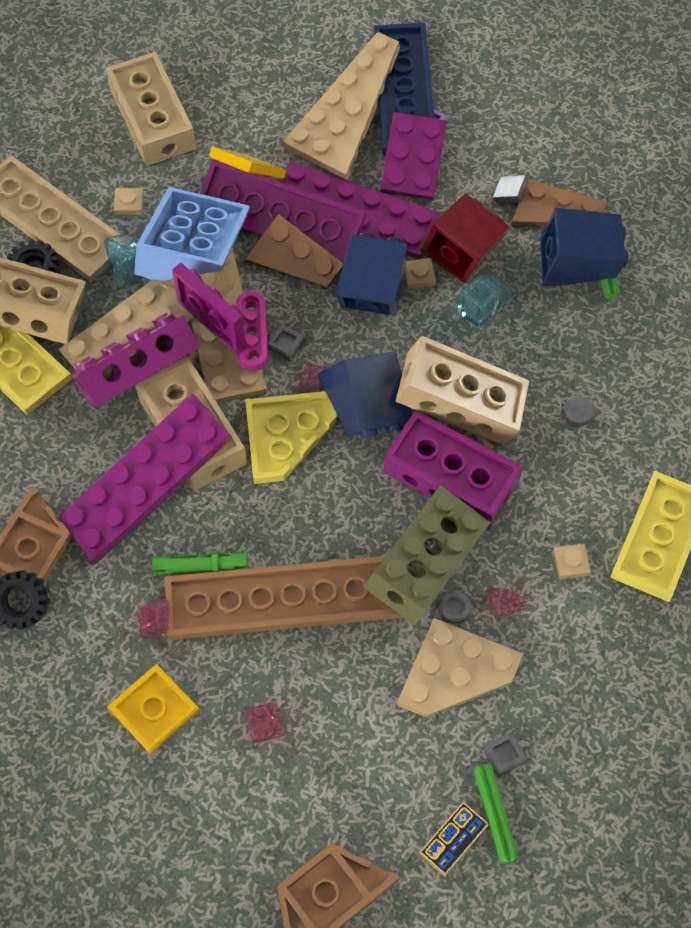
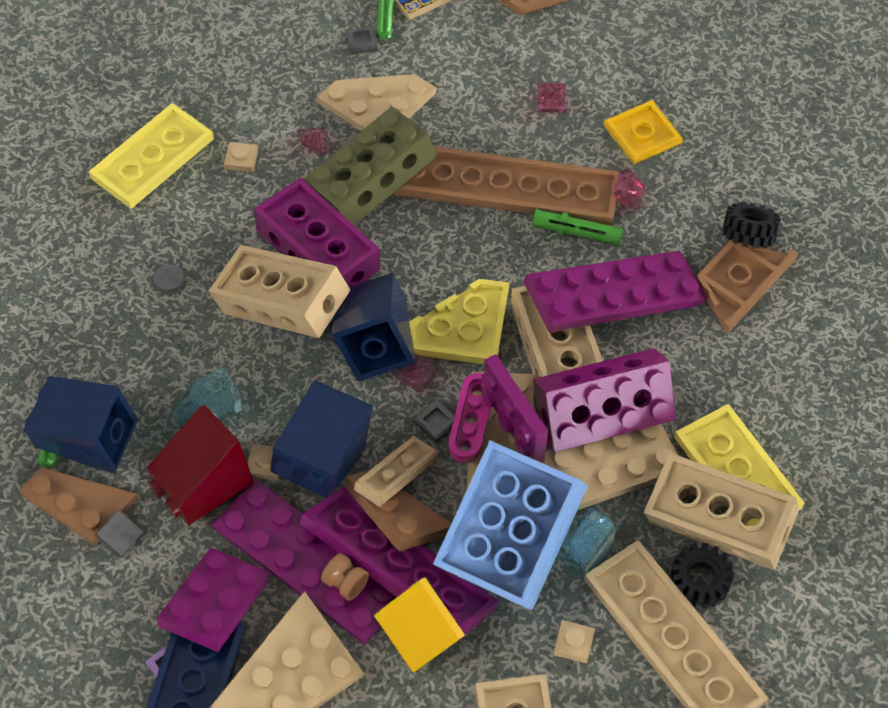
camera: 165 degrees left, 5 degrees down
(304, 278) = (395, 471): none -> tan tile
(316, 181) = (345, 576): none -> medium nougat wheel

